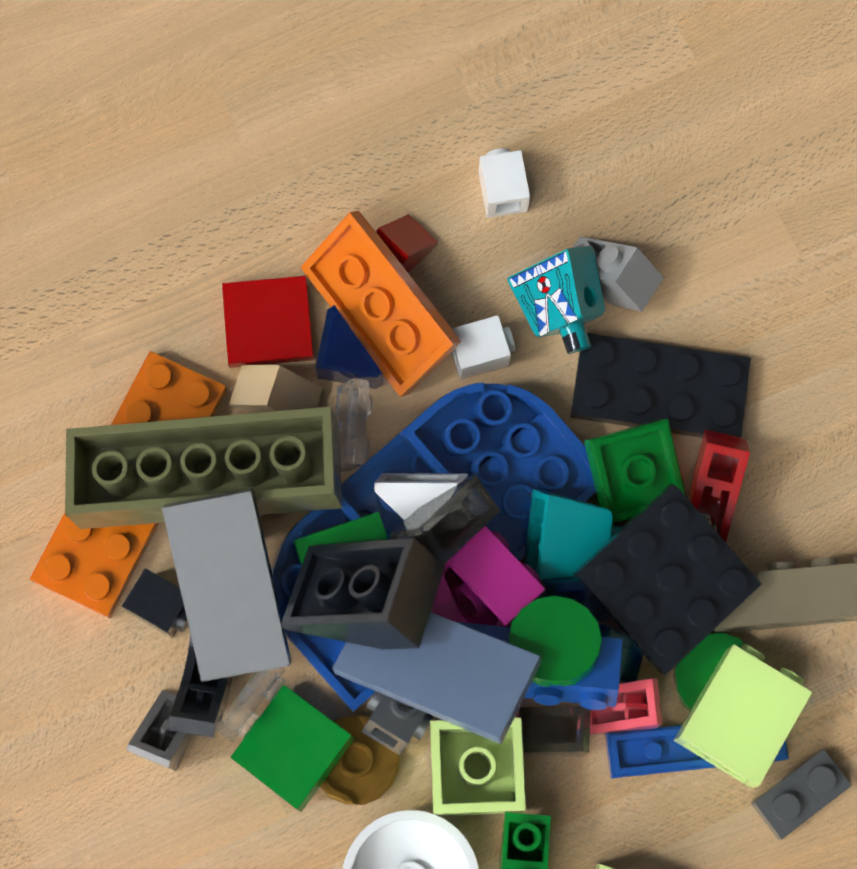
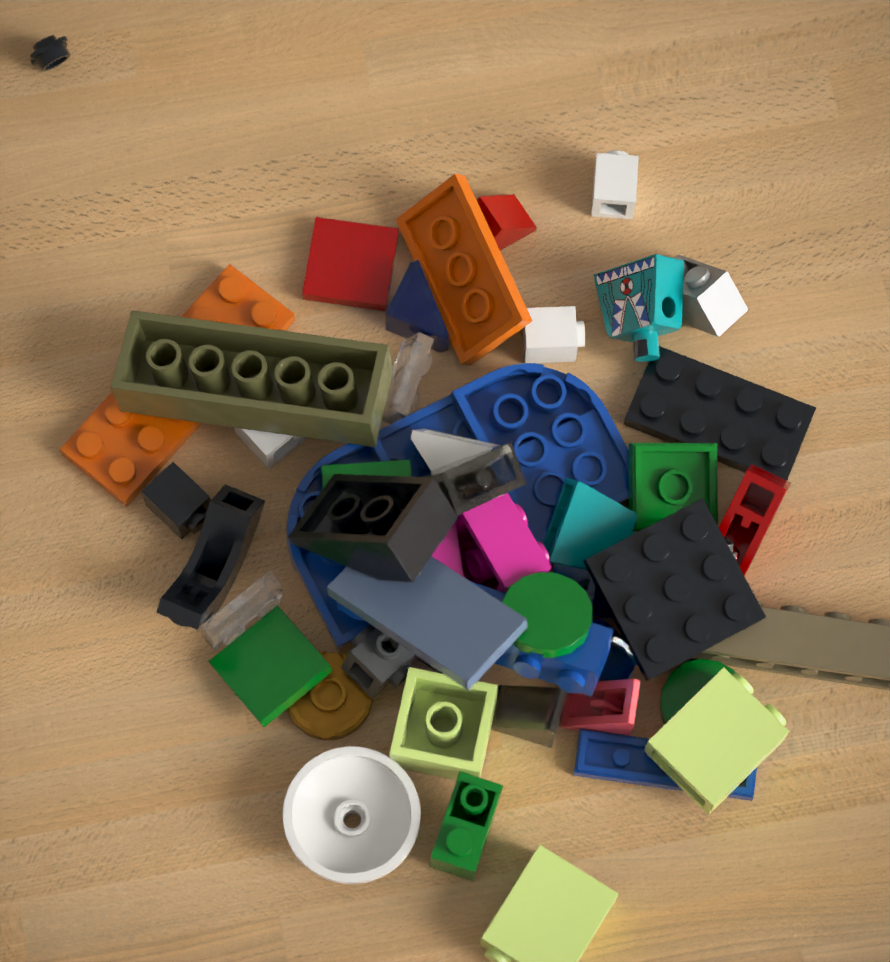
camera: 15 degrees right, 5 degrees down
(154, 739) = (145, 629): light grey slope -> none
(226, 584) = (246, 489): tile -> none
(273, 389) = (339, 321): tan slope -> none
(801, 794) = (757, 835): dark grey plate -> none

